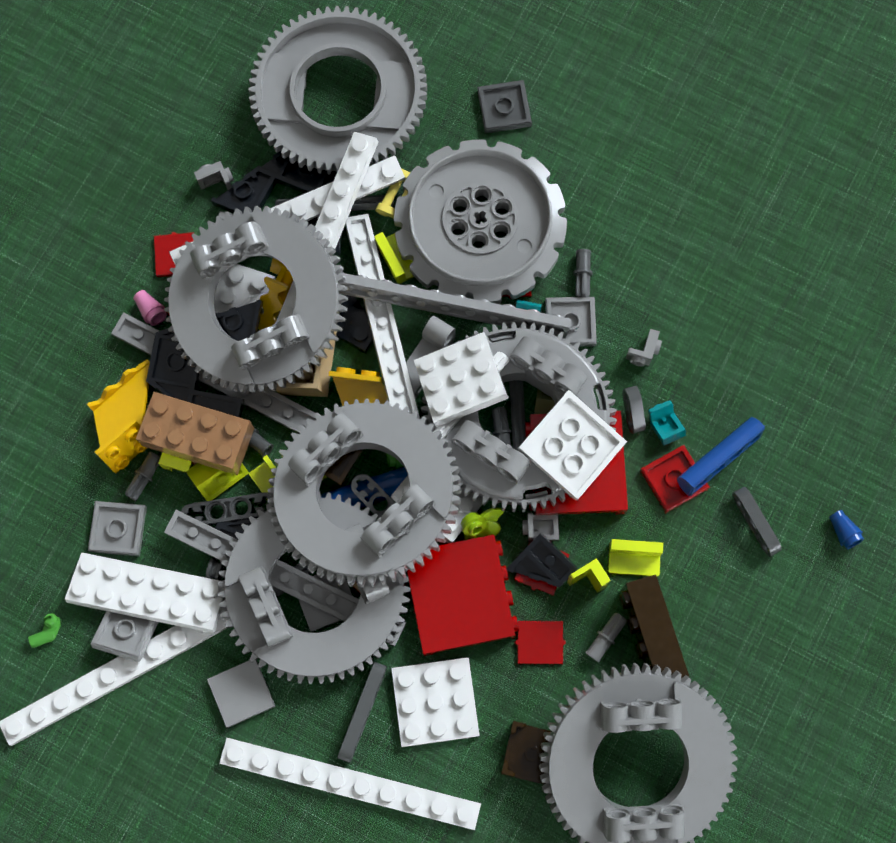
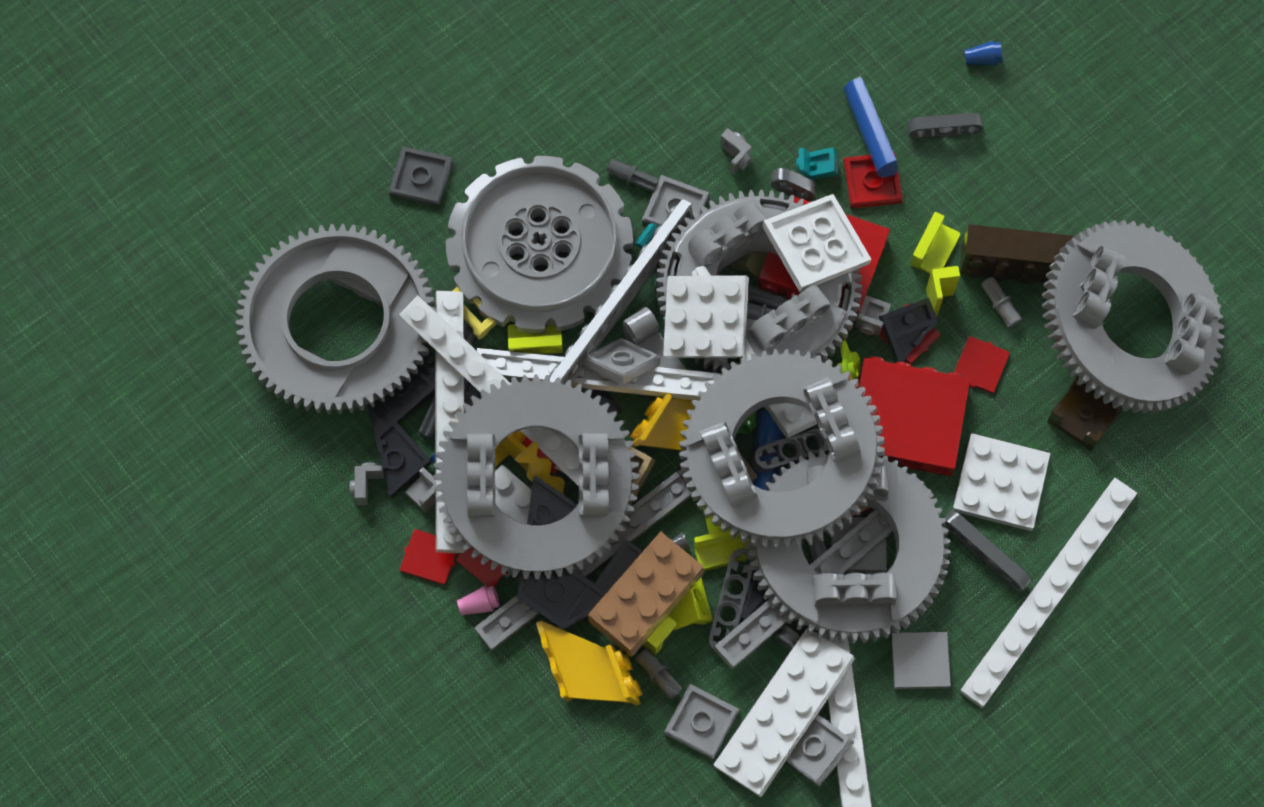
camera: 70 degrees left, 5 degrees down
(397, 329) = (622, 361): none -> light grey tile

